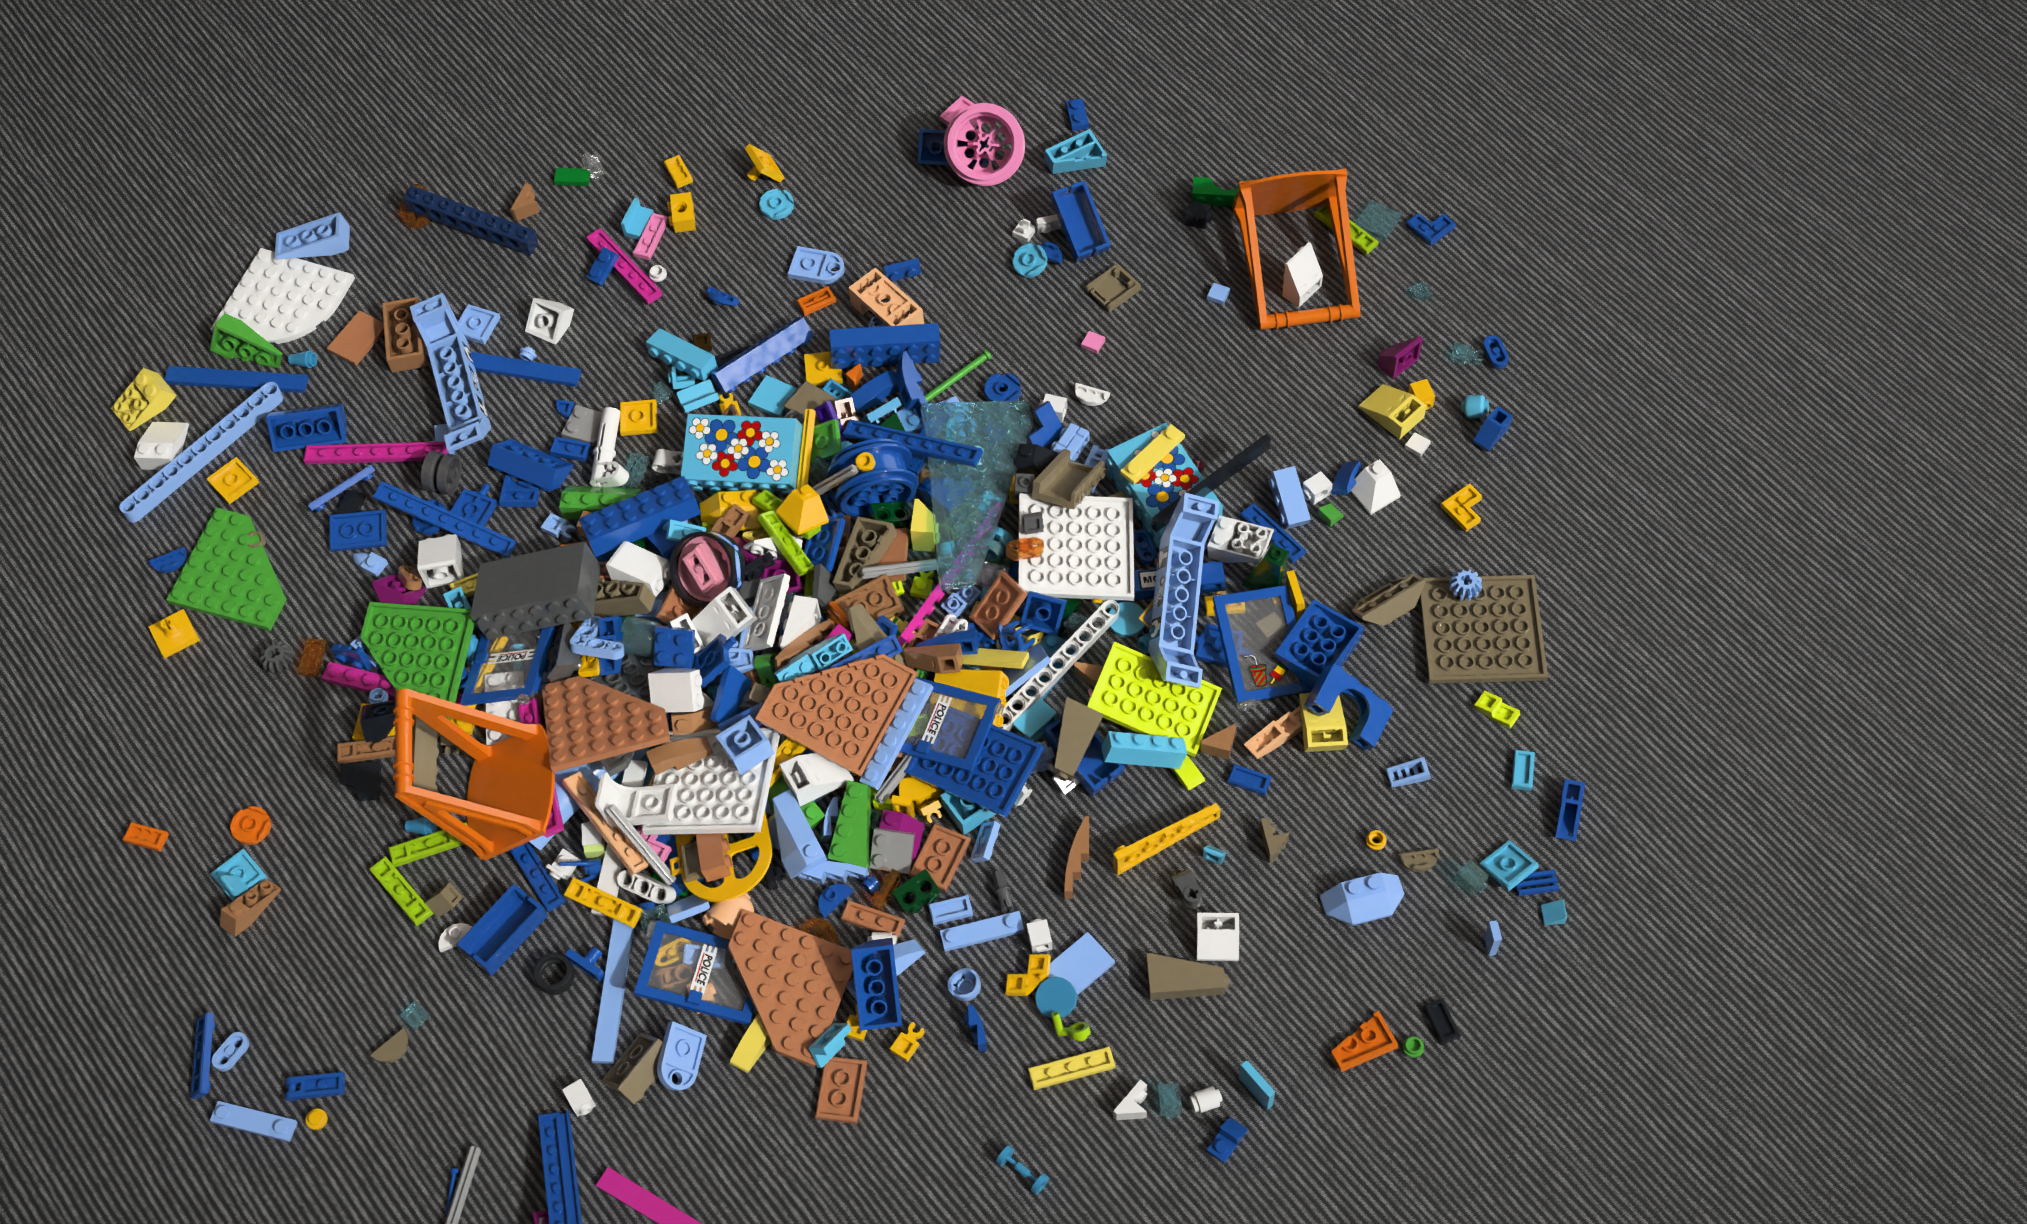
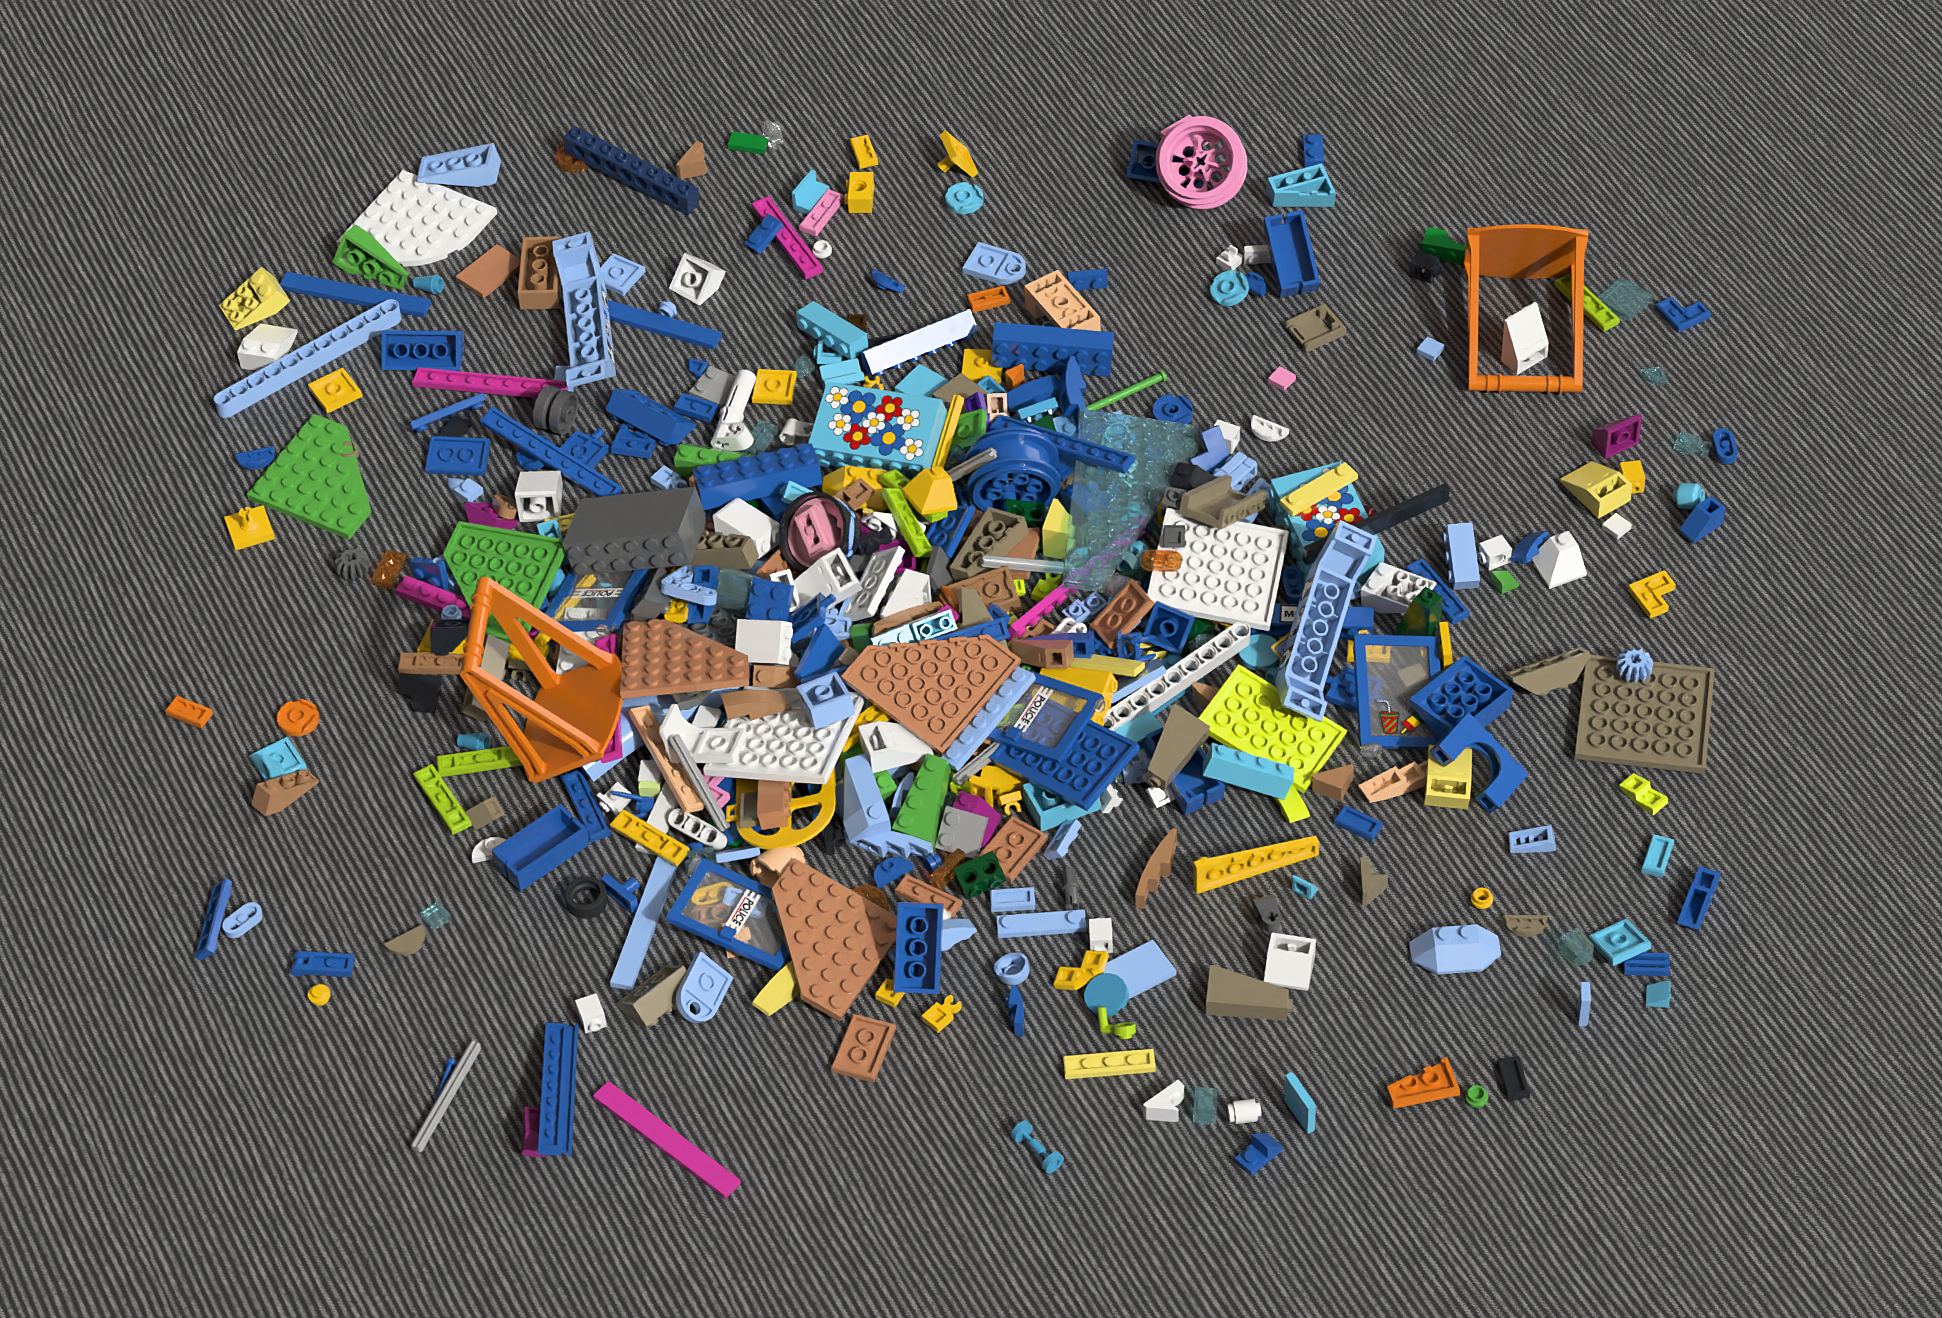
camera: 10 degrees right, 10 degrees down
(253, 1121) = (255, 987): light blue plate -> none
(829, 1043) = (859, 999): medium azure panel -> none
(865, 462) = (1005, 448): yellow tile -> none

